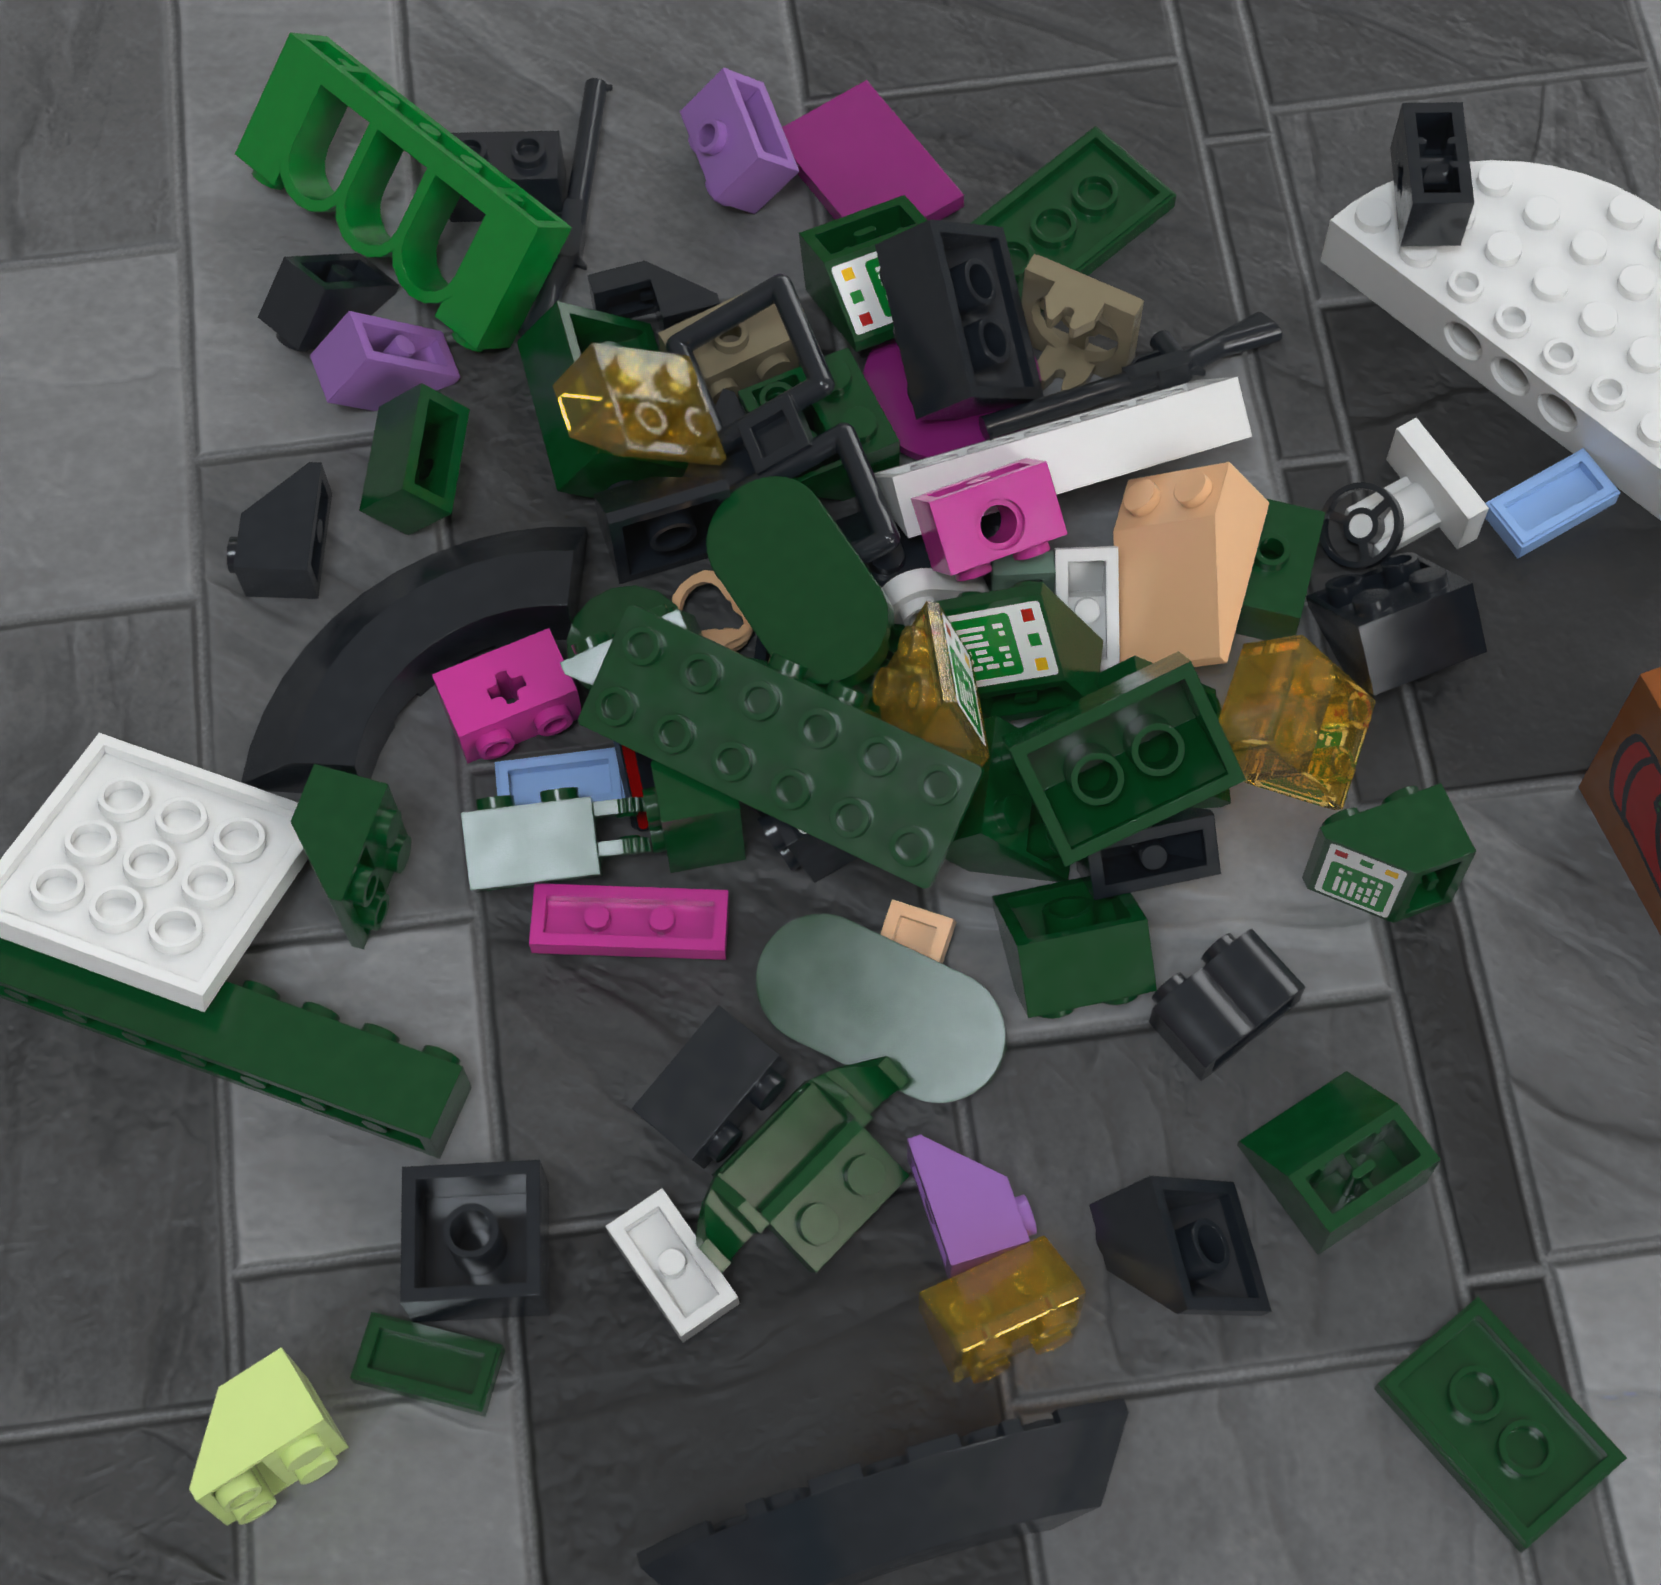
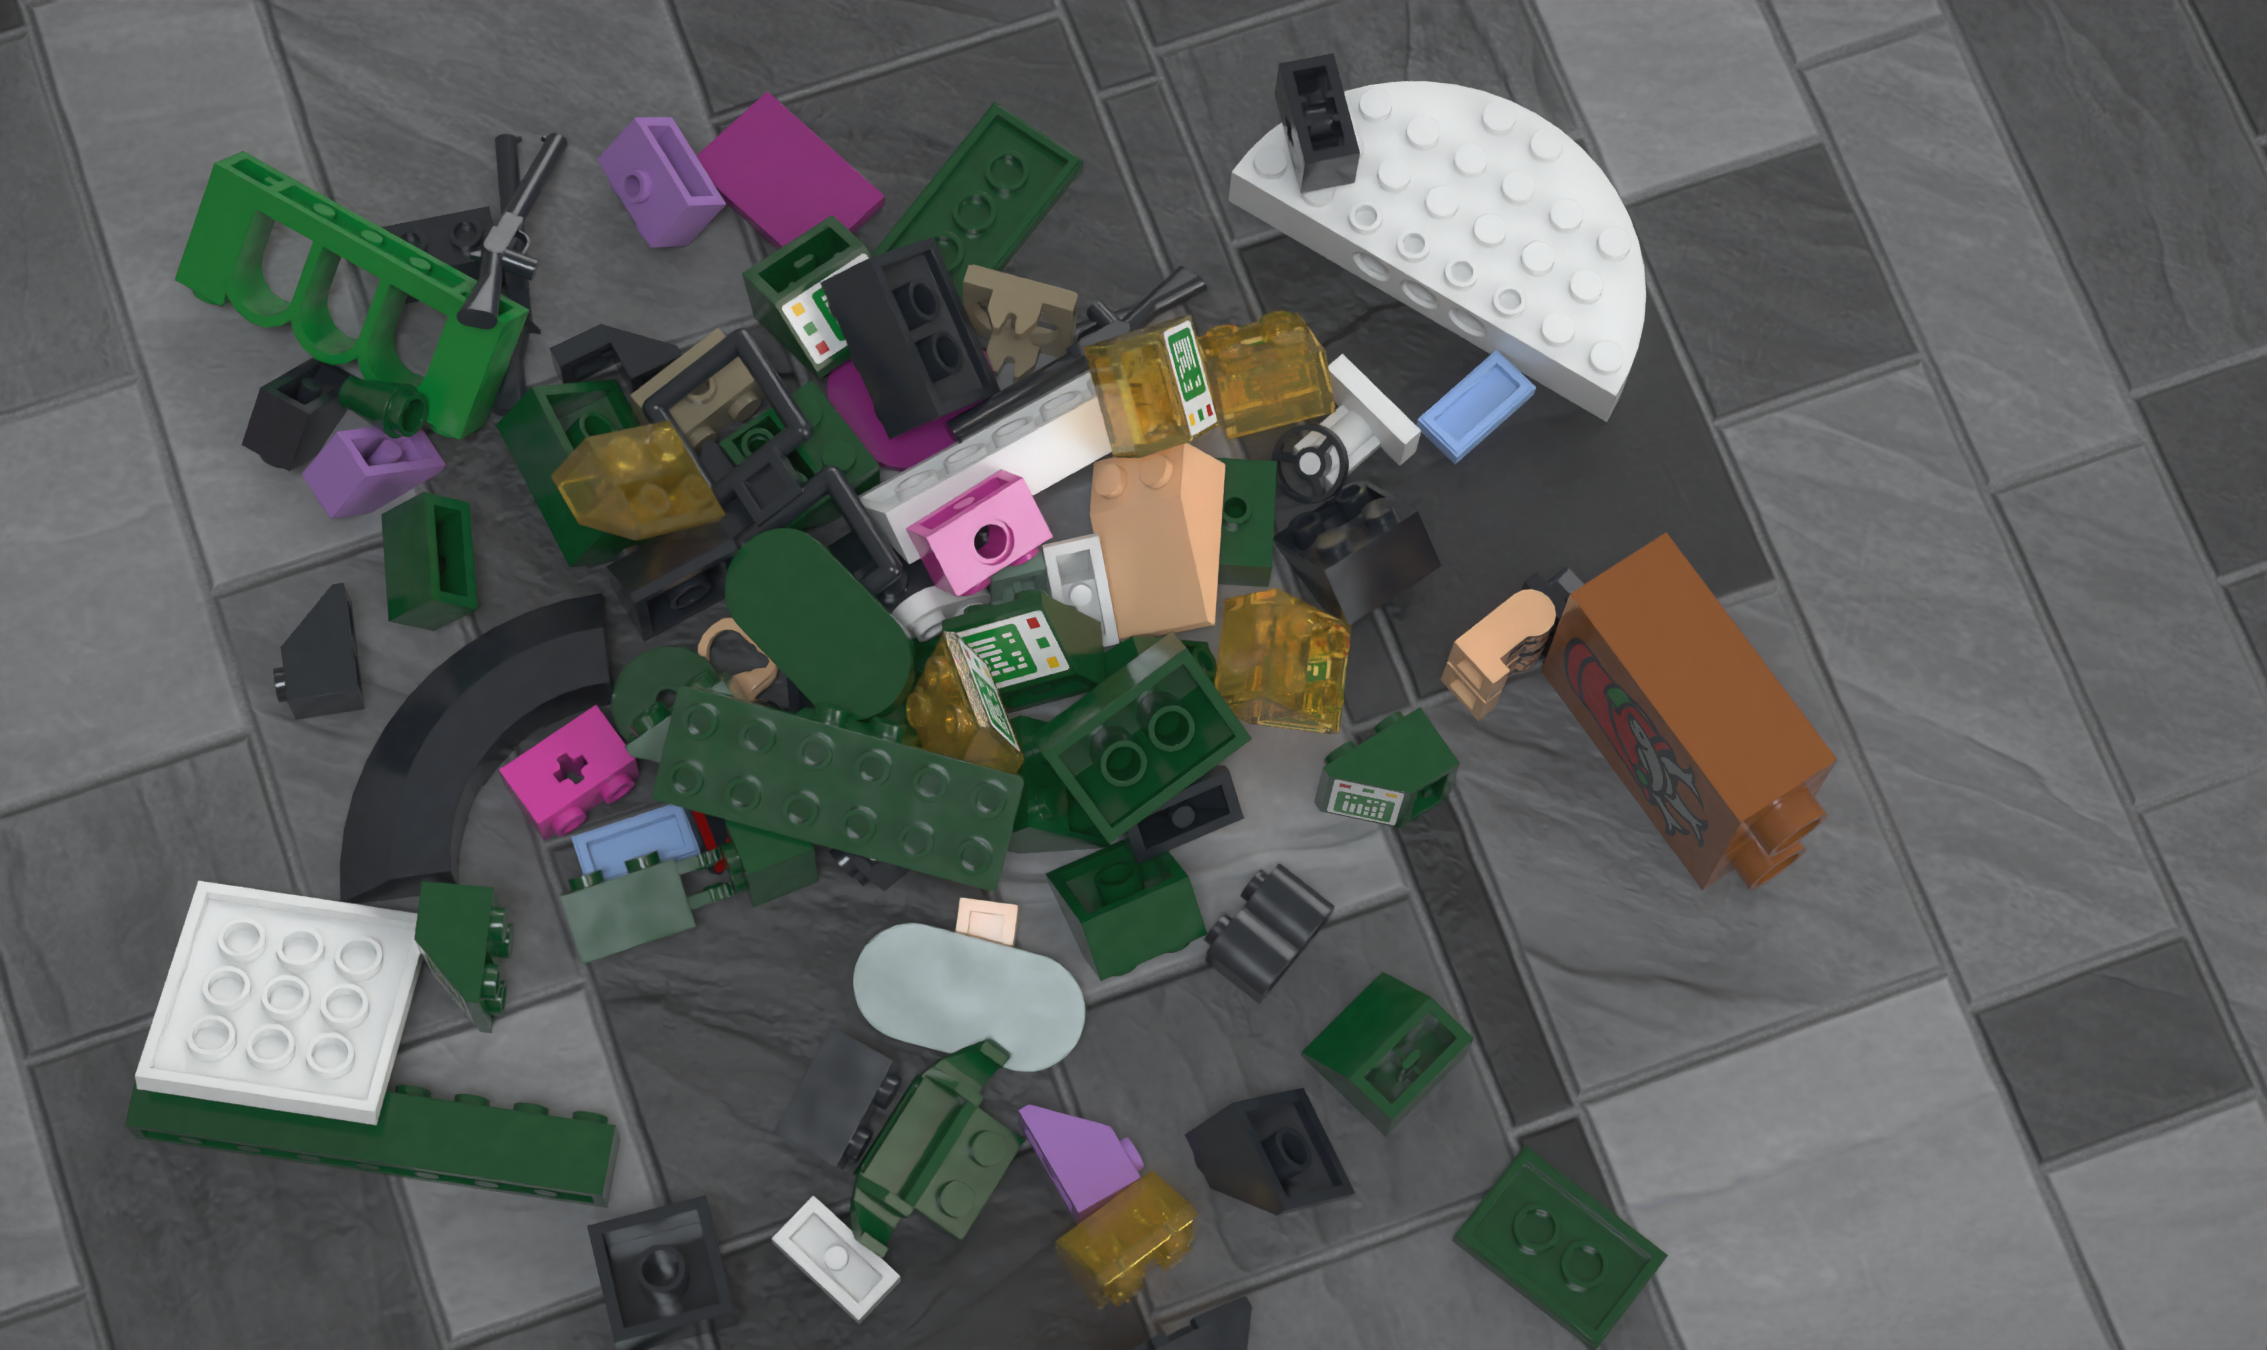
camera: 20 degrees left, 5 degrees up
(410, 300) = (388, 406): none -> dark green cone
(557, 160) = (482, 304): none -> black piece
(629, 921) = (729, 961): dark pink plate -> none
(1205, 399) = (1152, 388): none -> clear yellow slope
(1328, 428) = (1266, 373): none -> clear yellow slope
(1546, 741) = (1507, 641): none -> light nougat hips

